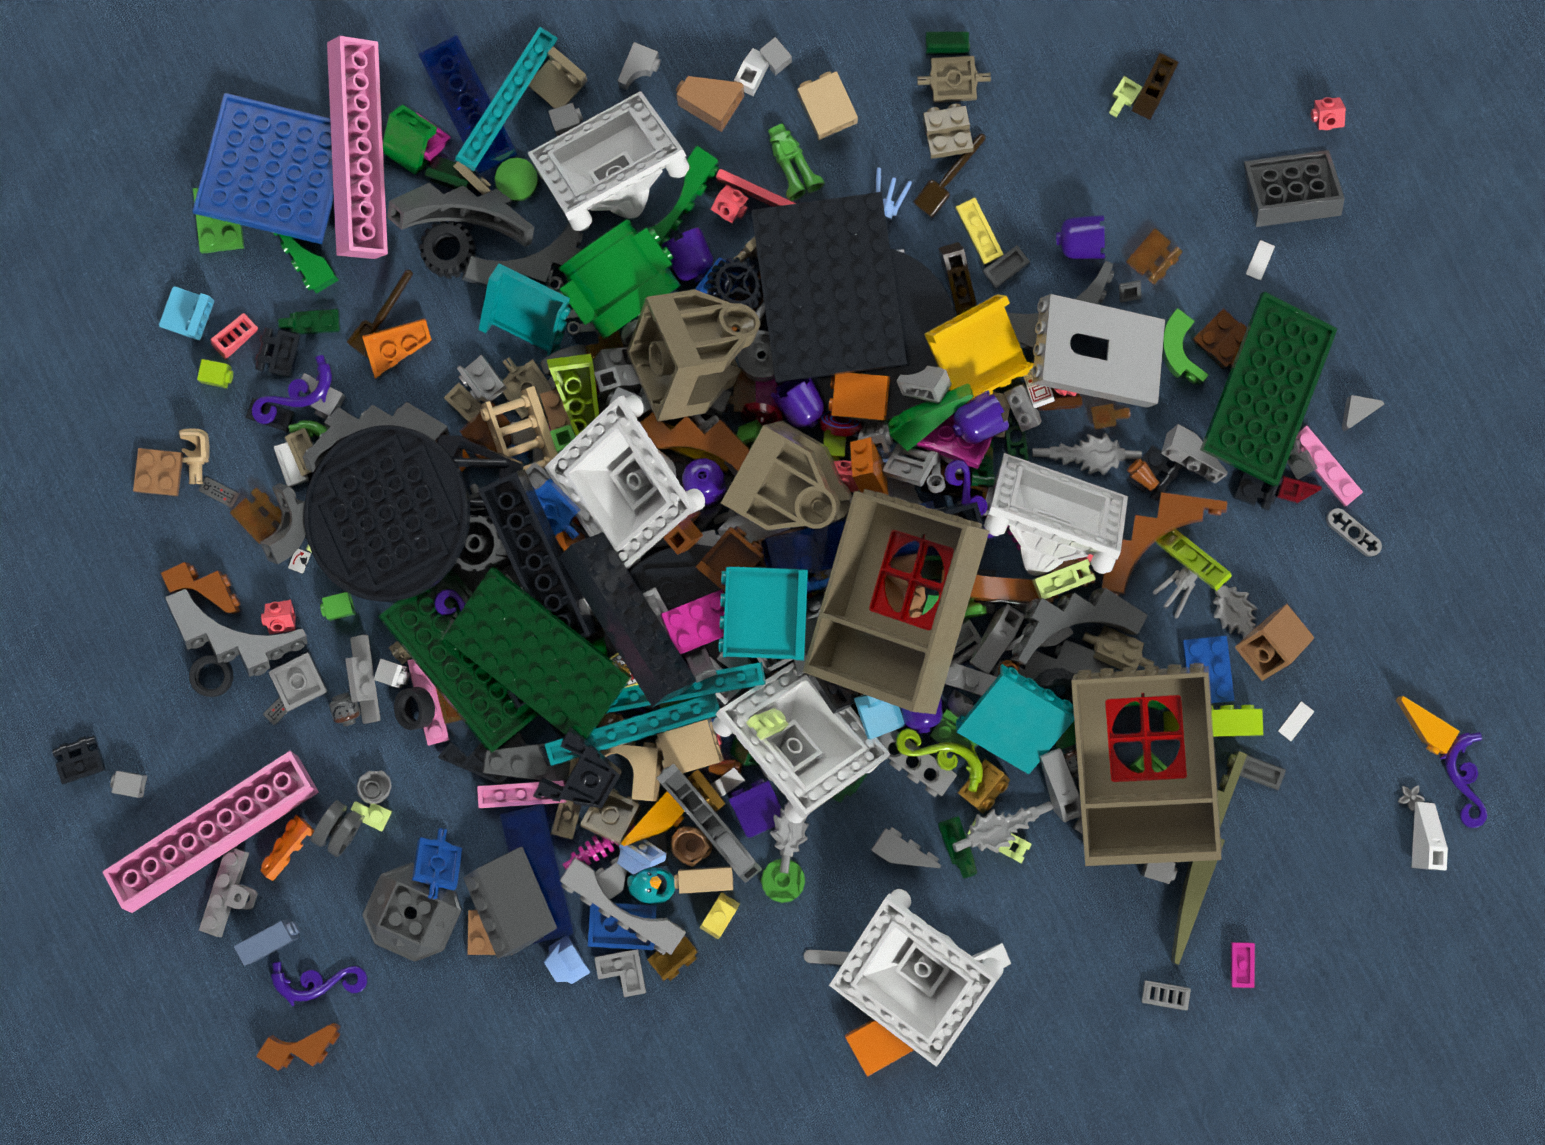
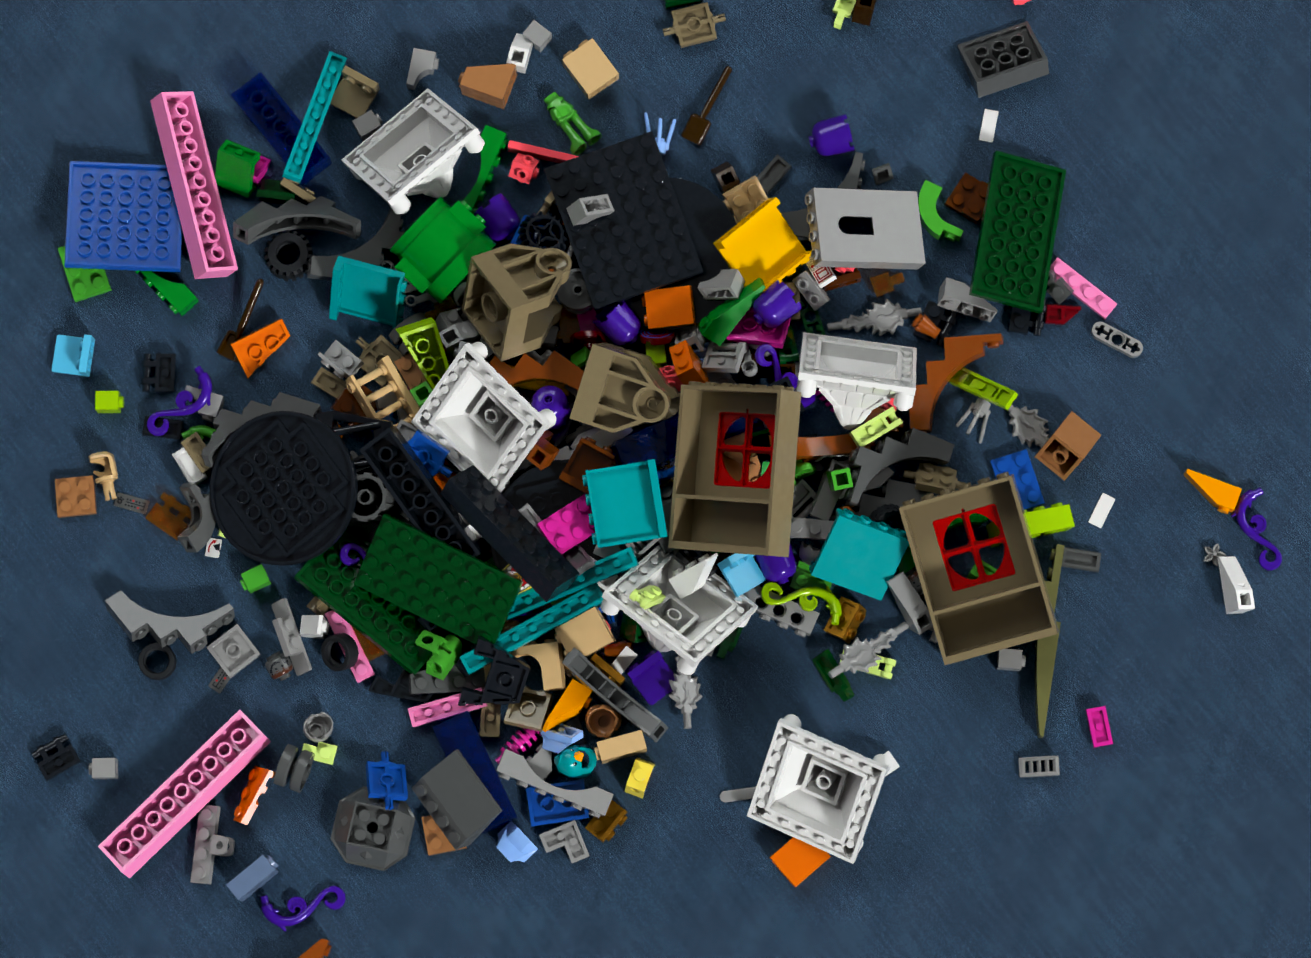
camera: 10 degrees left, 5 degrees down
(213, 586) = (142, 584): dark orange arch -> none
(228, 330) = (113, 382): coral slope -> none
(279, 617) = (206, 598): coral brick -> none
(312, 322) = (183, 341): dark green hinge -> none
(516, 179) = (336, 184): bright green tile -> none
(529, 734) = (444, 653): none -> bright green piece
(783, 886) = (690, 740): bright green tile -> none
(793, 267) = (589, 208): none -> light grey arch
(824, 708) = (694, 576): none -> white slope
(898, 851) = (781, 689): light grey slope -> none
(948, 131) = (698, 69): dark tan plate -> none
(970, 288) = (744, 198): none -> tan plate
(979, 231) = (742, 149): light yellow tile -> none
(1011, 630) = (839, 479): none -> bright green brick
(1149, 251) = (892, 137): clear orange plate -> none
(1357, 409) = (1098, 234): light grey slope -> none

